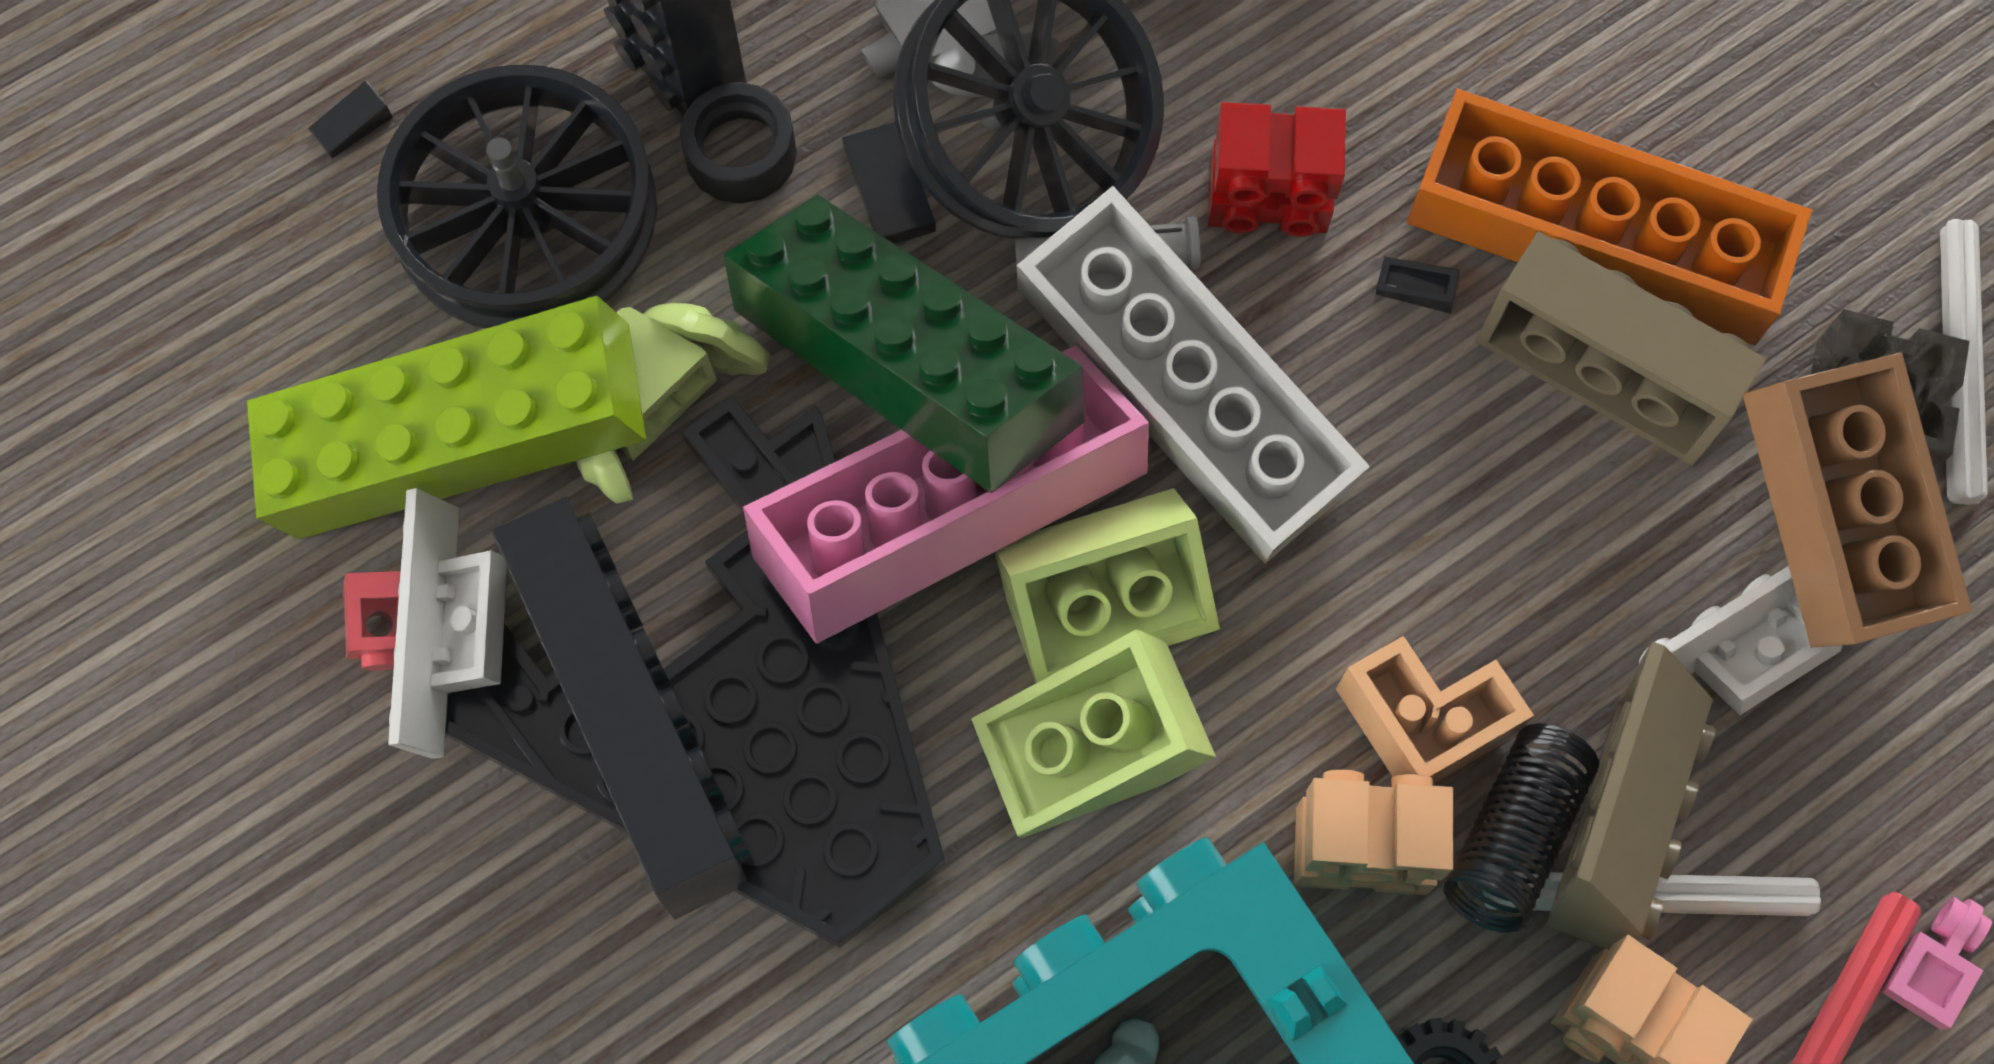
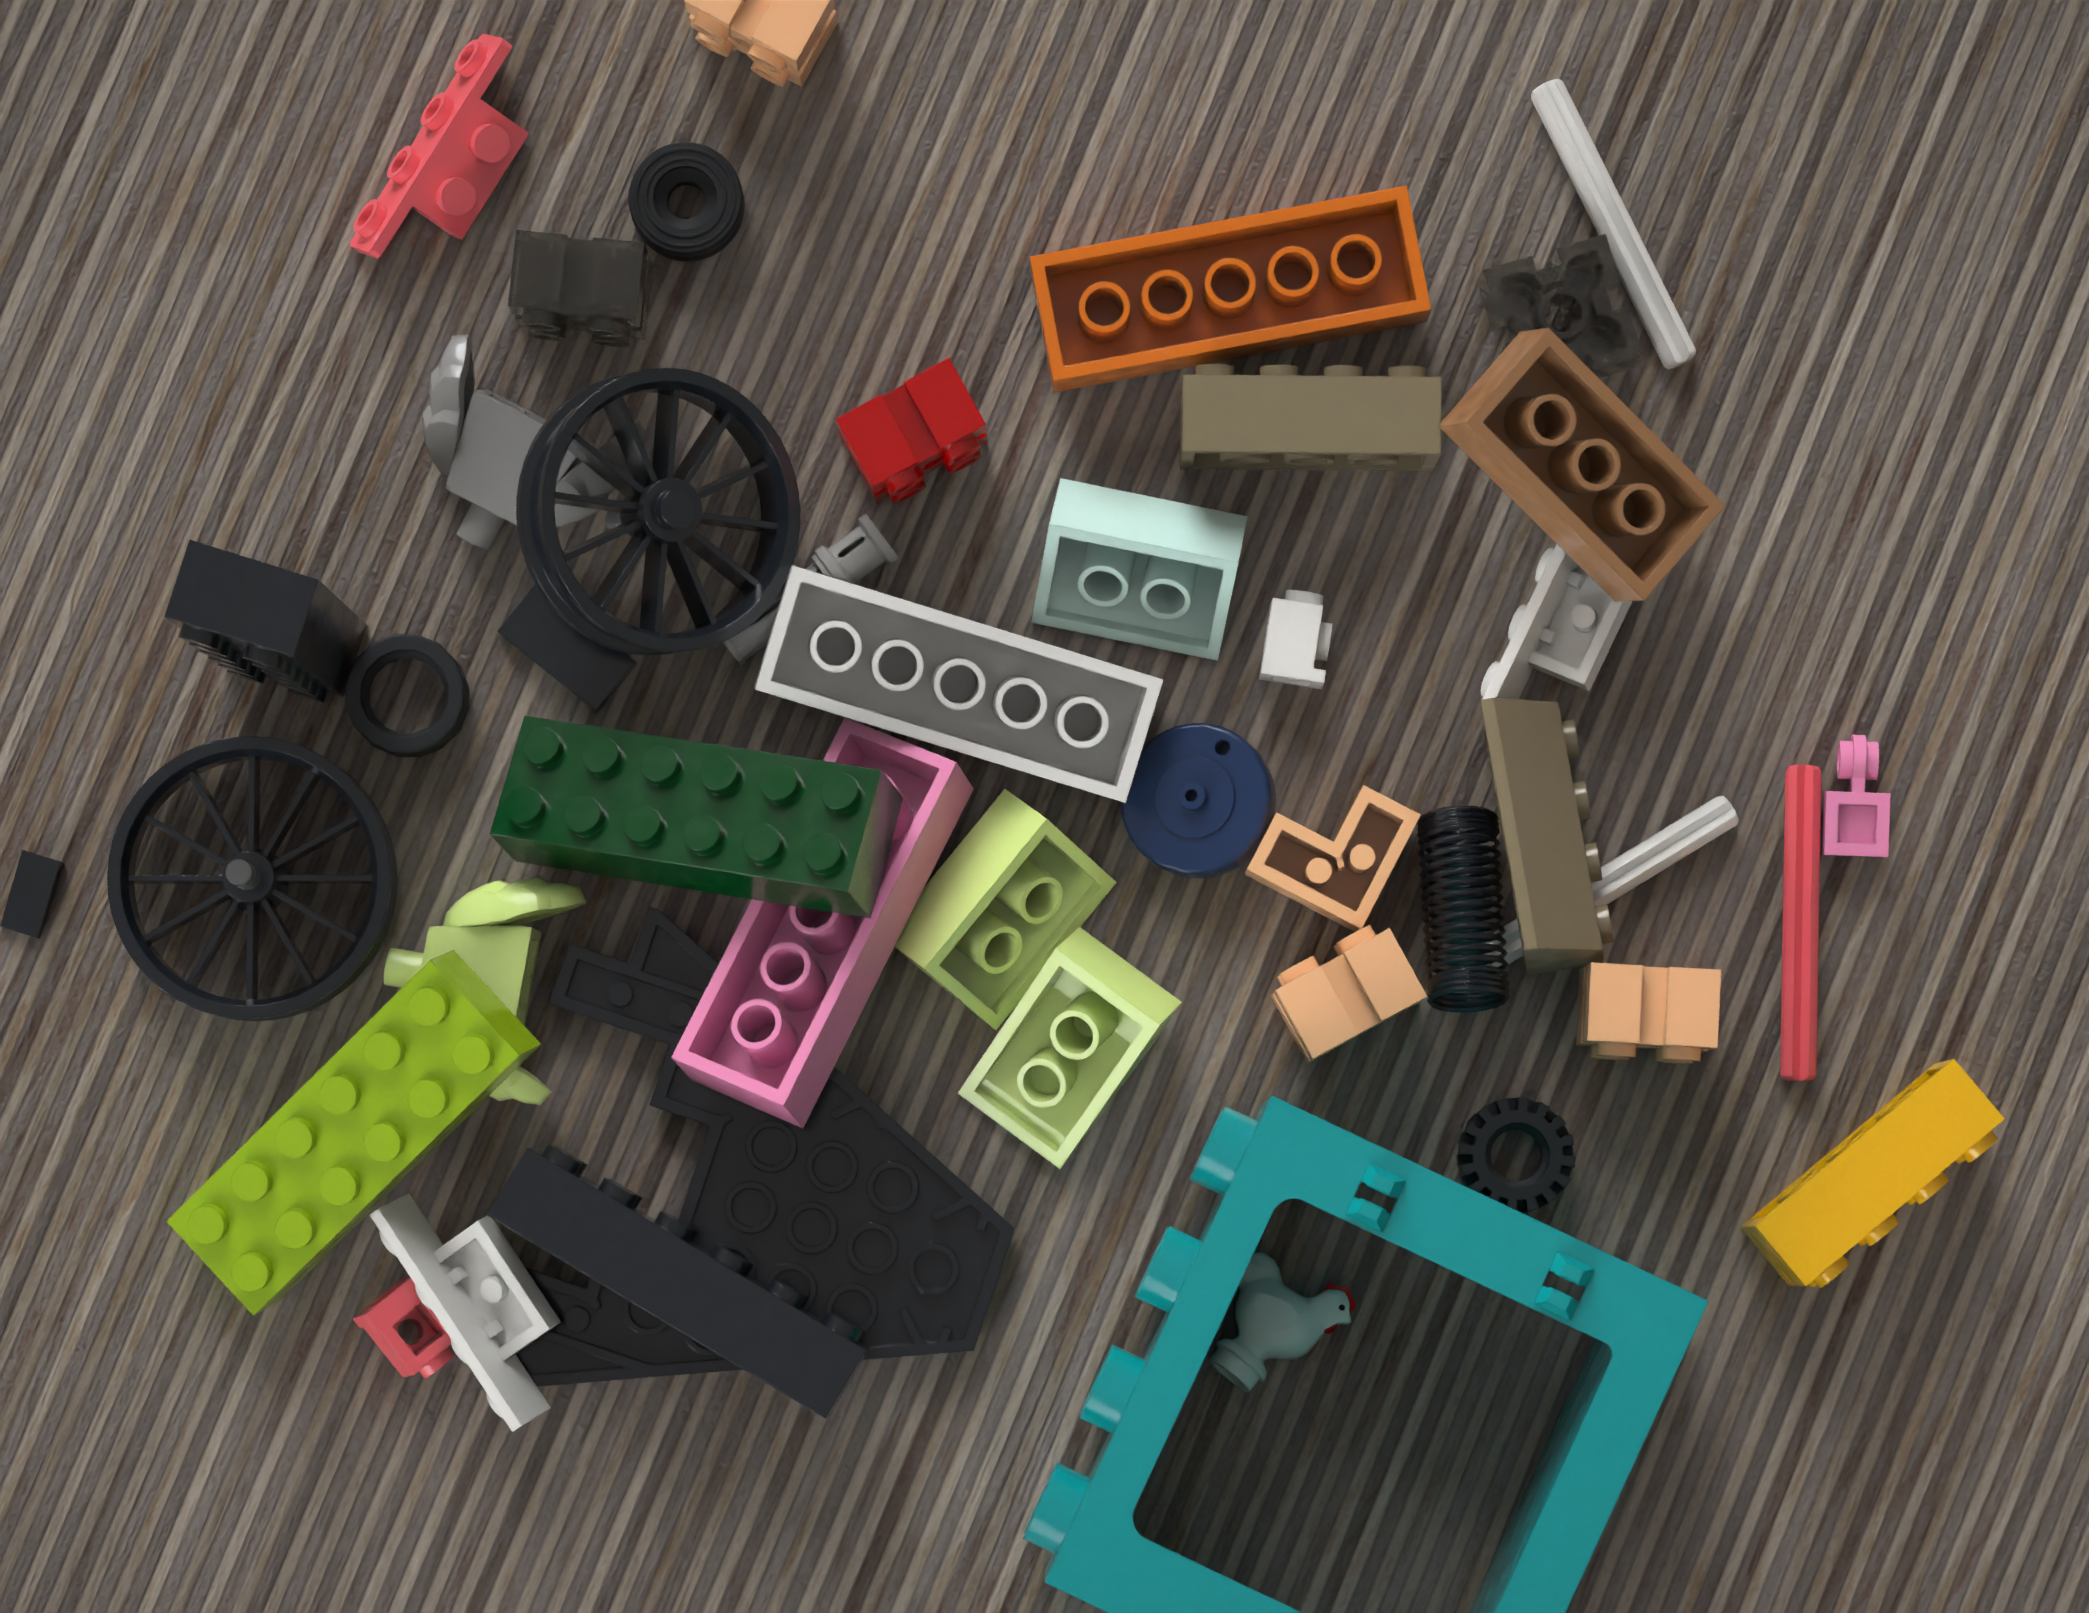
camera: 30 degrees left, 15 degrees up
(1333, 598) = (1199, 801): none -> dark blue wheel
(1397, 388) = (1138, 569): none -> light aqua slope
(1418, 283) = (1098, 445): black piece -> none
(1496, 523) = (1296, 640): none -> white brick

